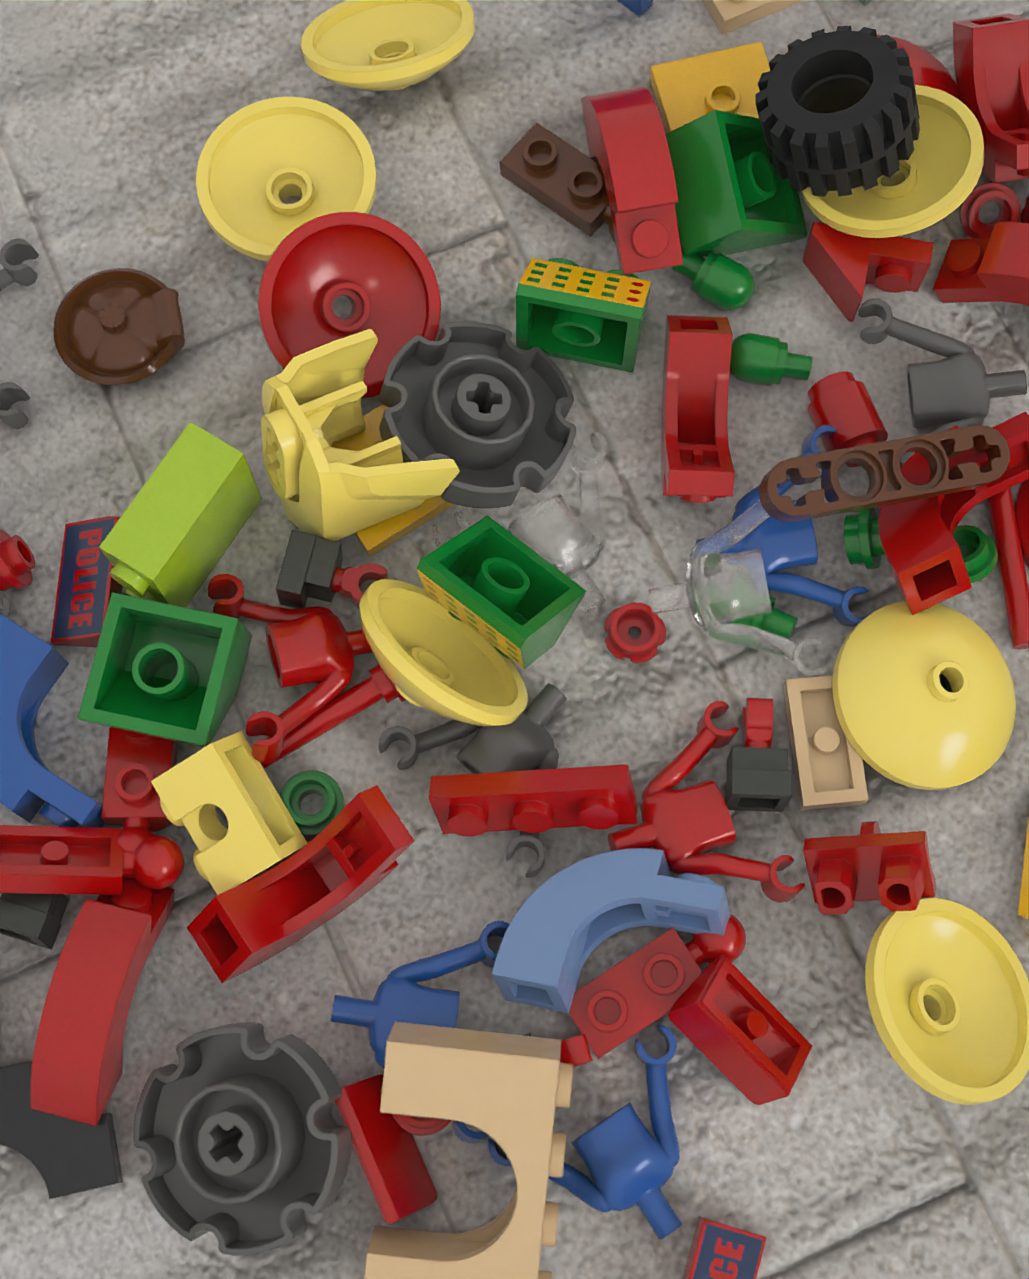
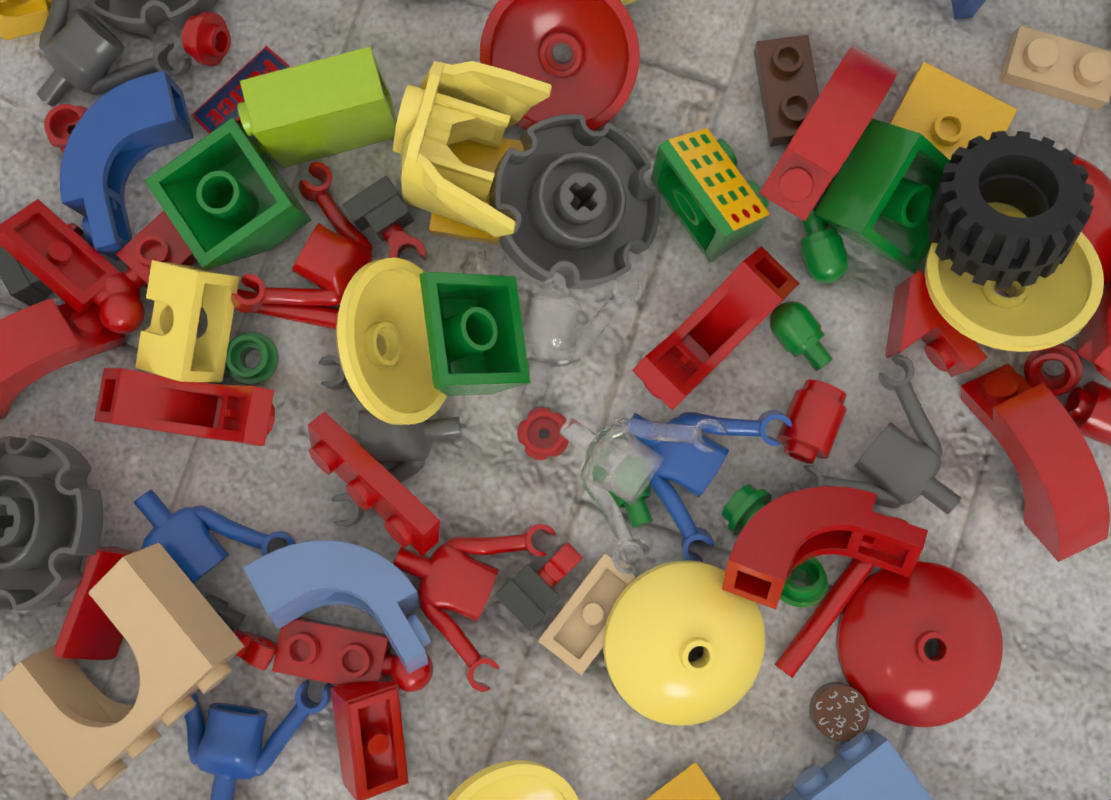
camera: 50 degrees right, 10 degrees up
(869, 869) = (540, 717): red hips -> none
(885, 478) = (782, 492): reddish brown beam -> none

